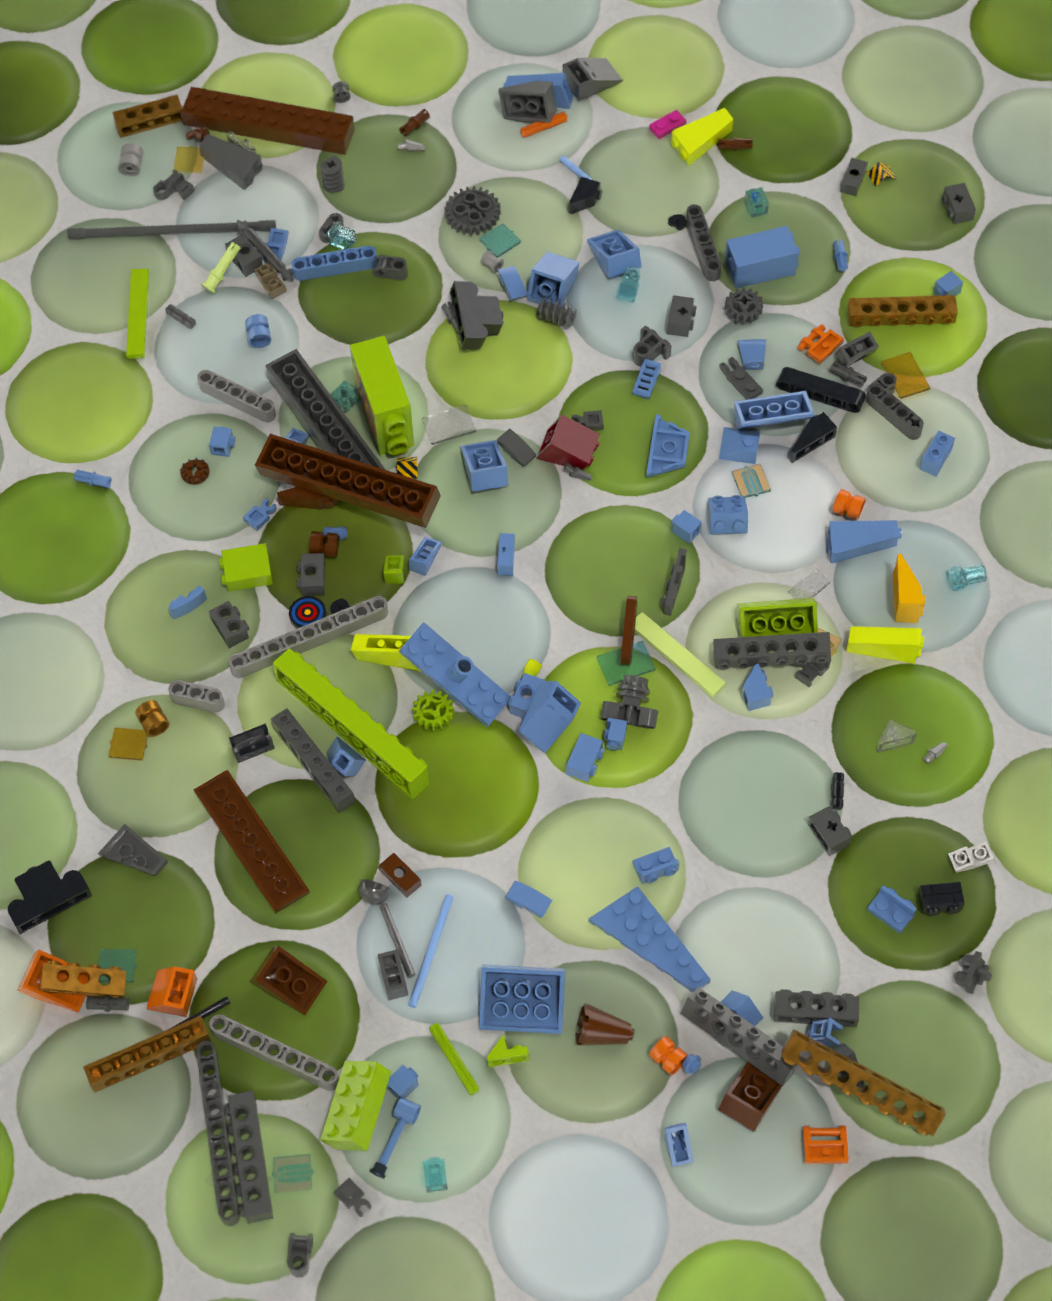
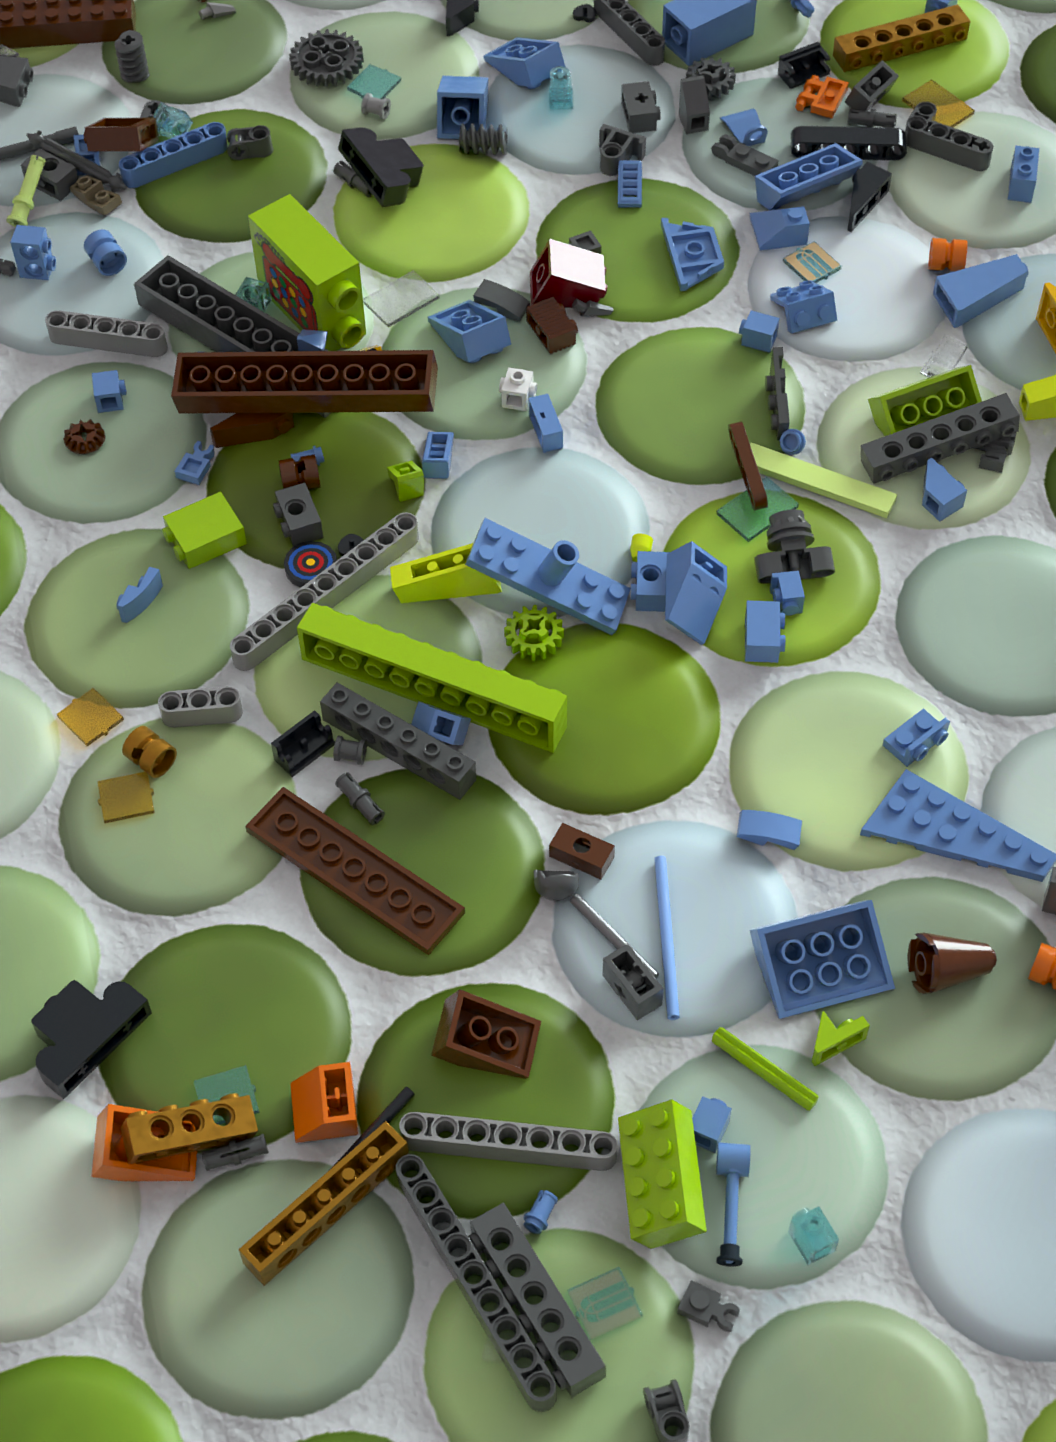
camera: 20 degrees left, 5 degrees down
(126, 680) = (90, 717): none -> clear yellow piece
(134, 852) = (191, 934): dark grey wing -> none
(208, 318) = (33, 252): none -> medium blue brick
(227, 625) = (209, 605): dark grey brick -> none
(273, 793) = (359, 798): none -> dark grey pin
(276, 1103) = (537, 1217): none -> medium blue pin
(280, 757) = (350, 750): none -> dark grey bush
(302, 238) = (121, 134): none -> reddish brown window
(367, 446) = (312, 340): none -> medium blue slope
(496, 522) = (517, 383): none -> white brick
(512, 282) = (413, 121): medium blue slope -> none
(542, 478) = (552, 325): none -> reddish brown brick
(671, 620) = (792, 441): none -> medium blue plate
(718, 327) = (694, 105): none -> dark grey slope
(817, 313) = (802, 64): none -> black hinge

